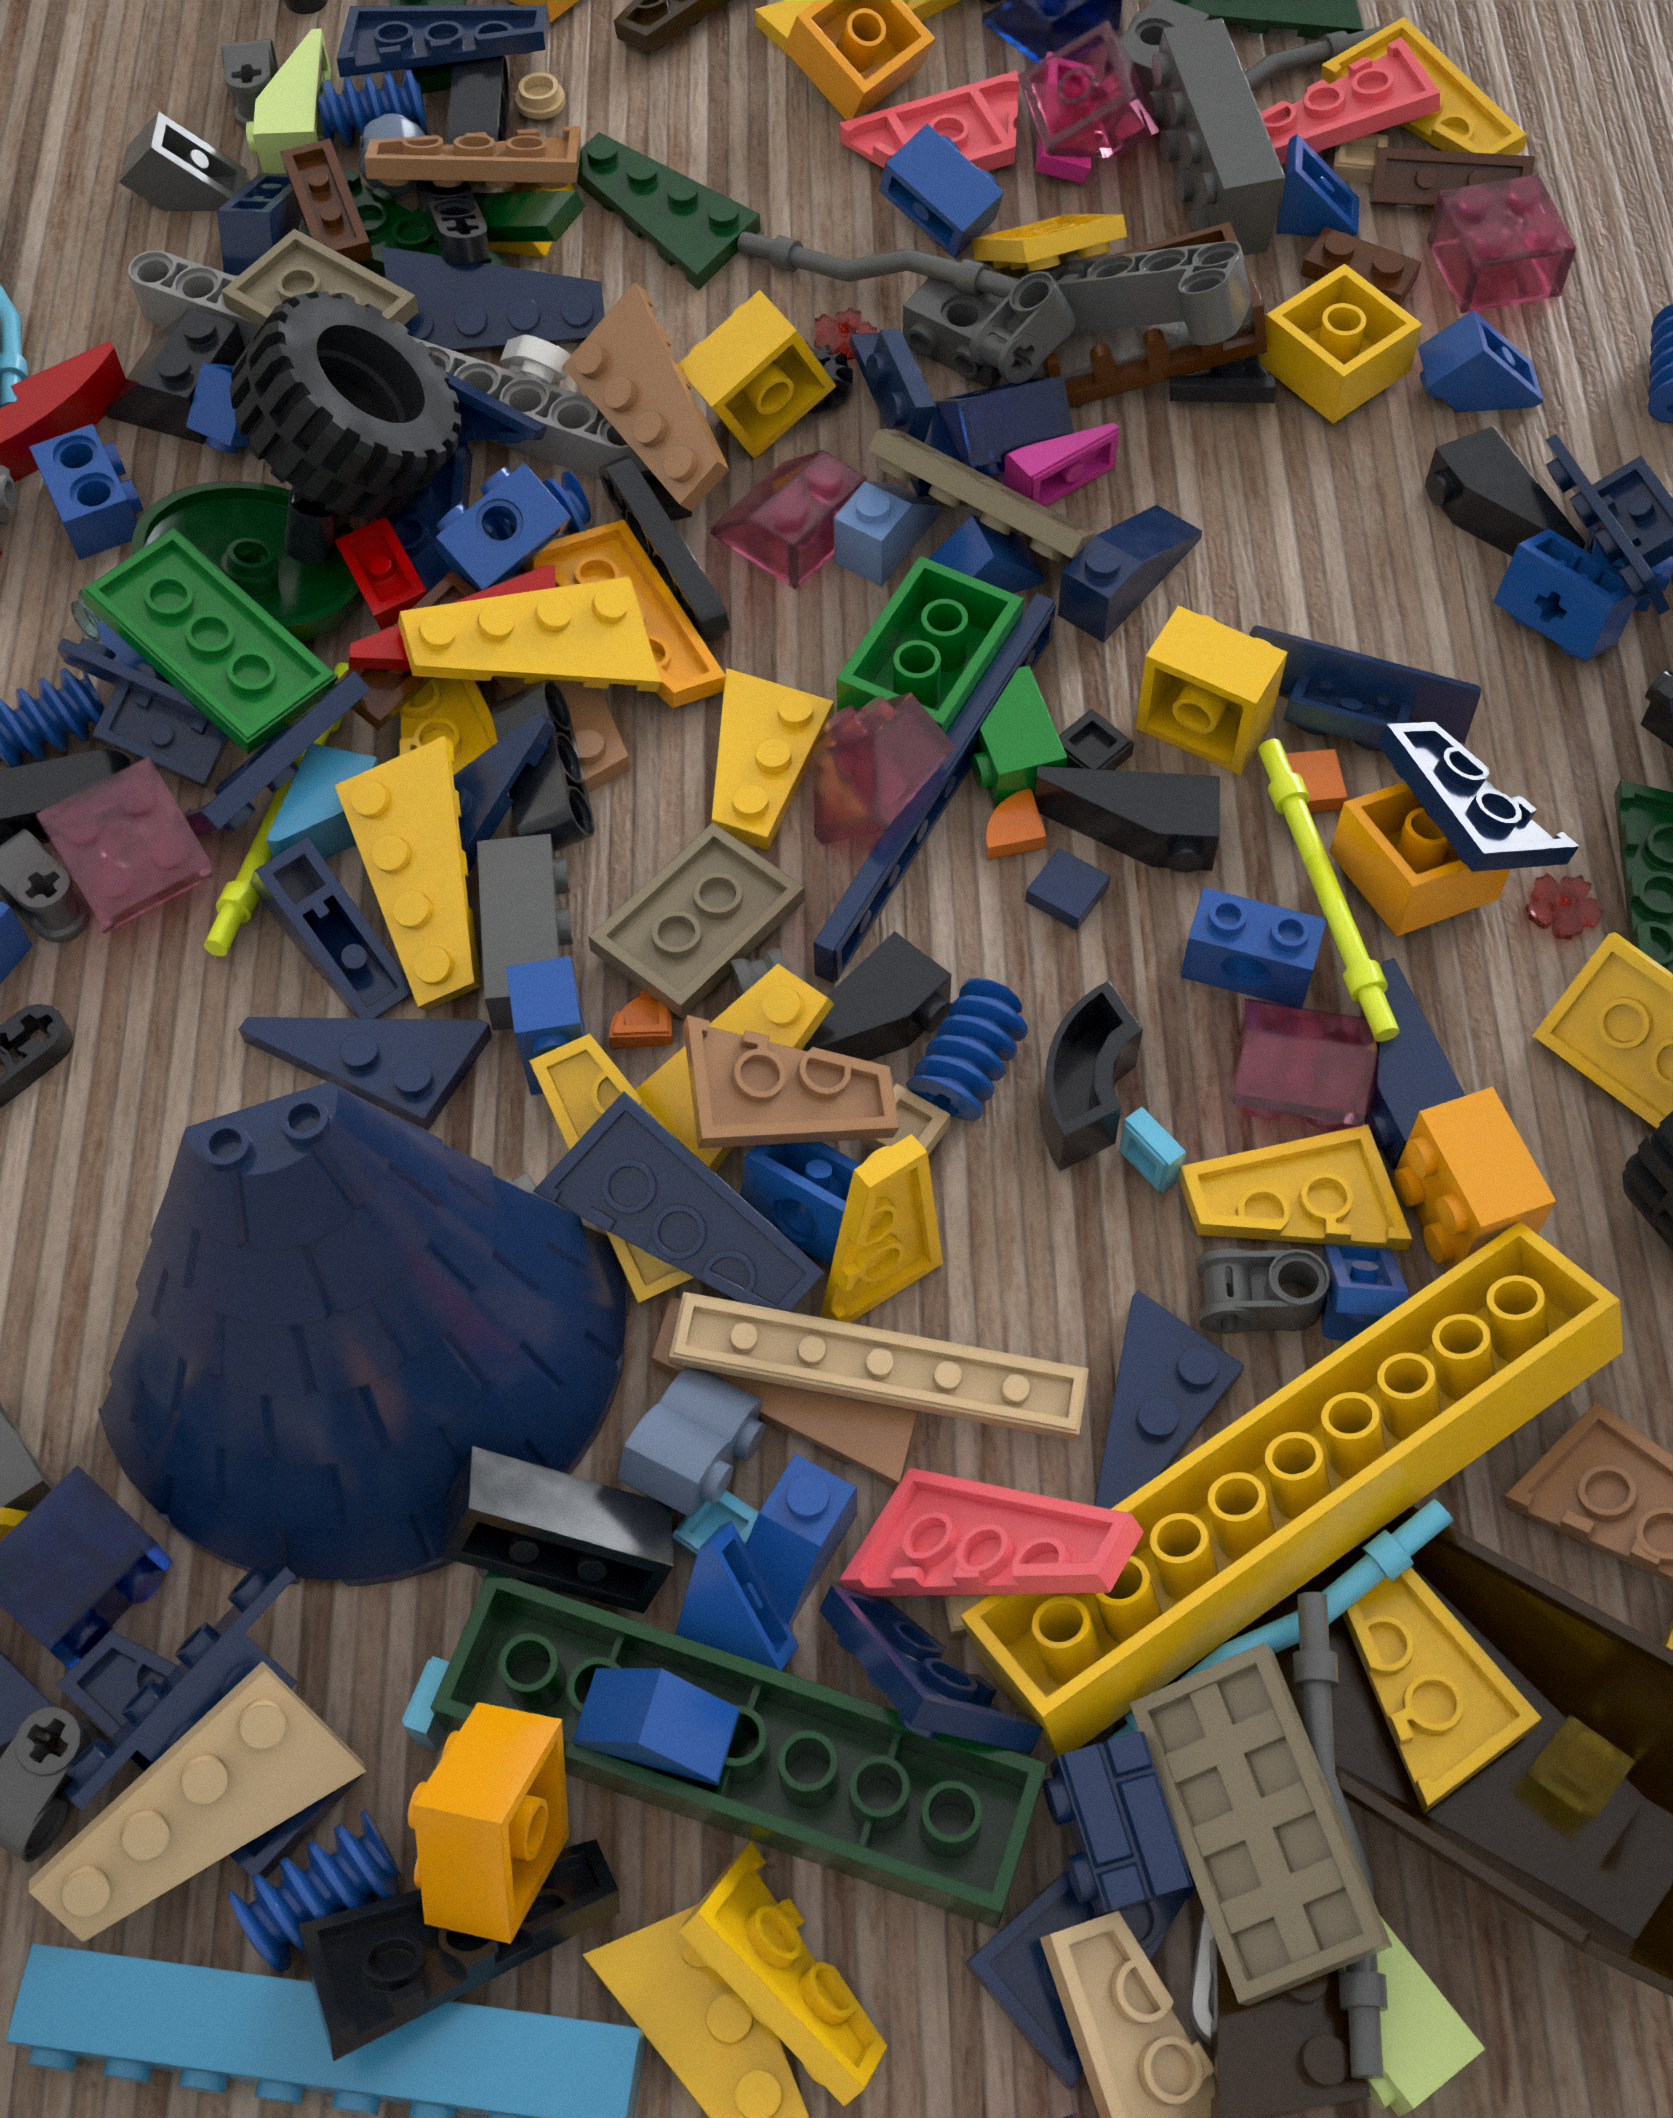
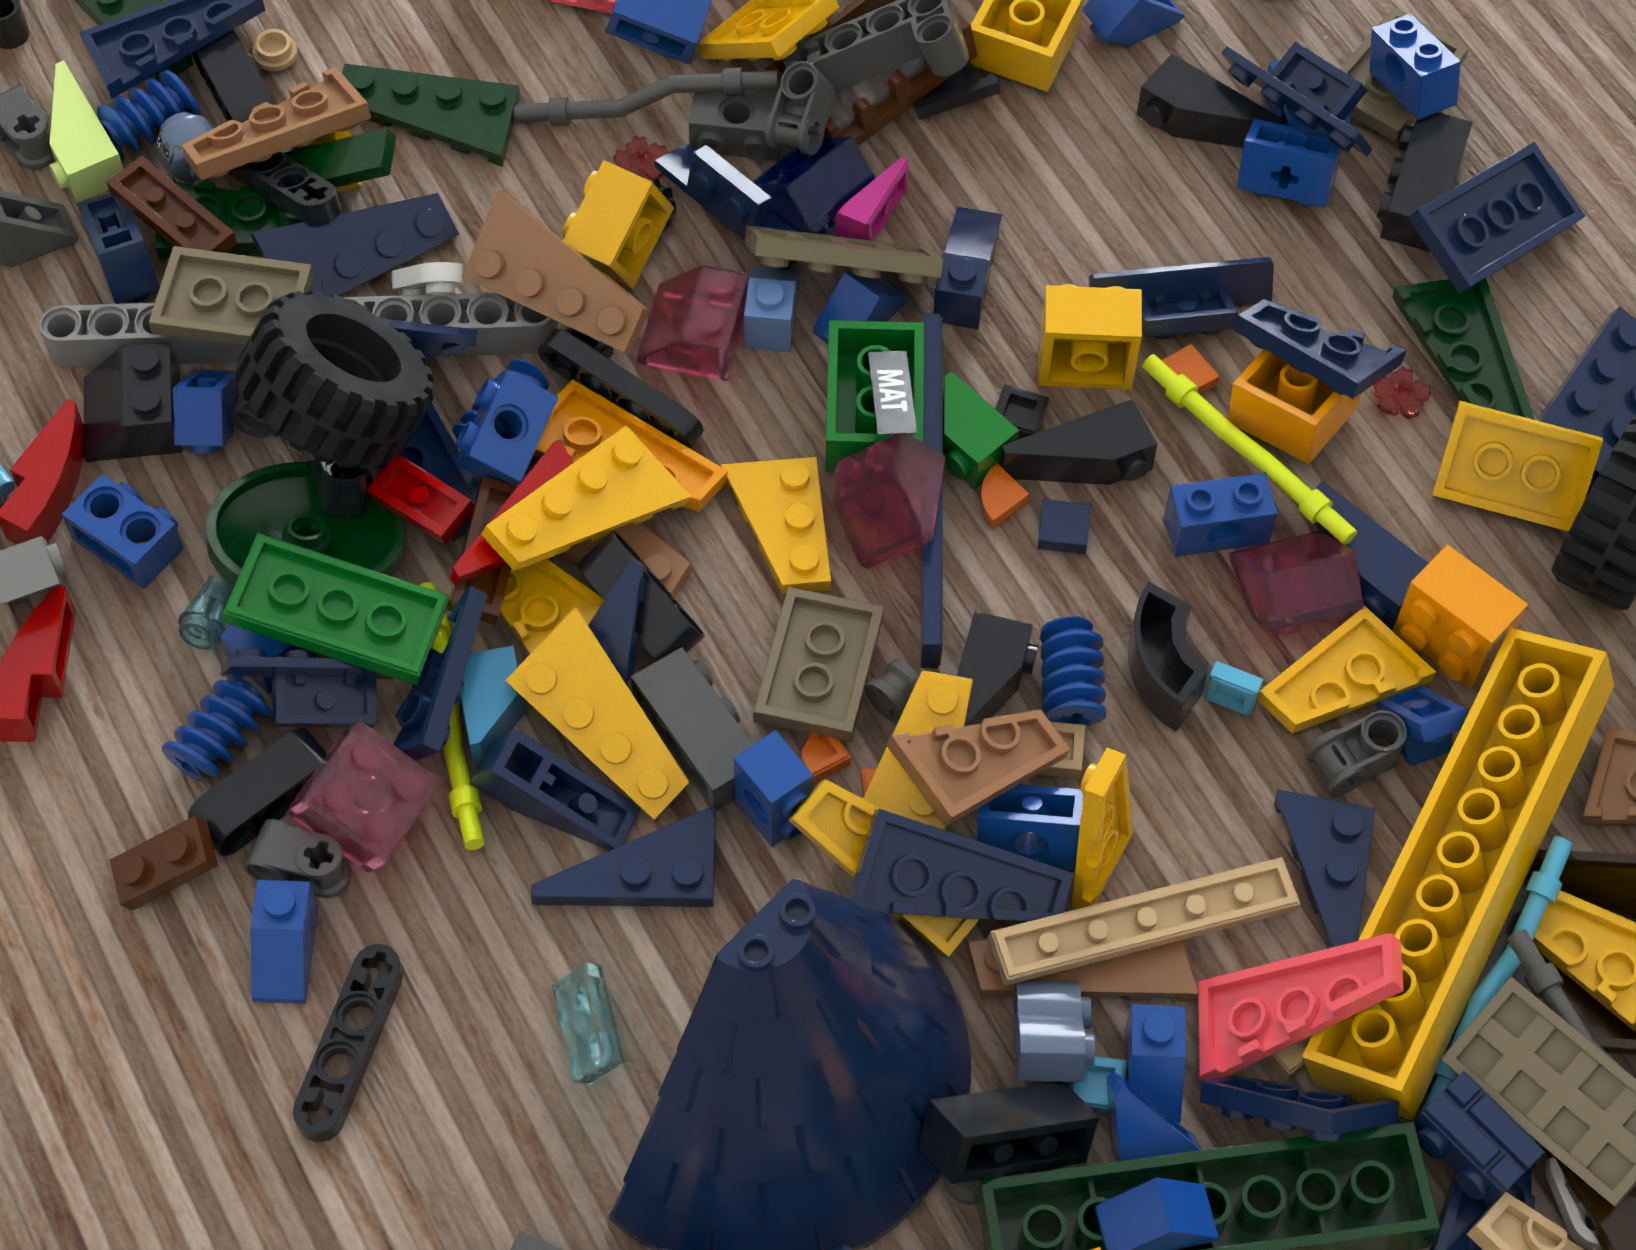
camera: 30 degrees left, 0 degrees up
(931, 652) = (892, 392): none -> sticker

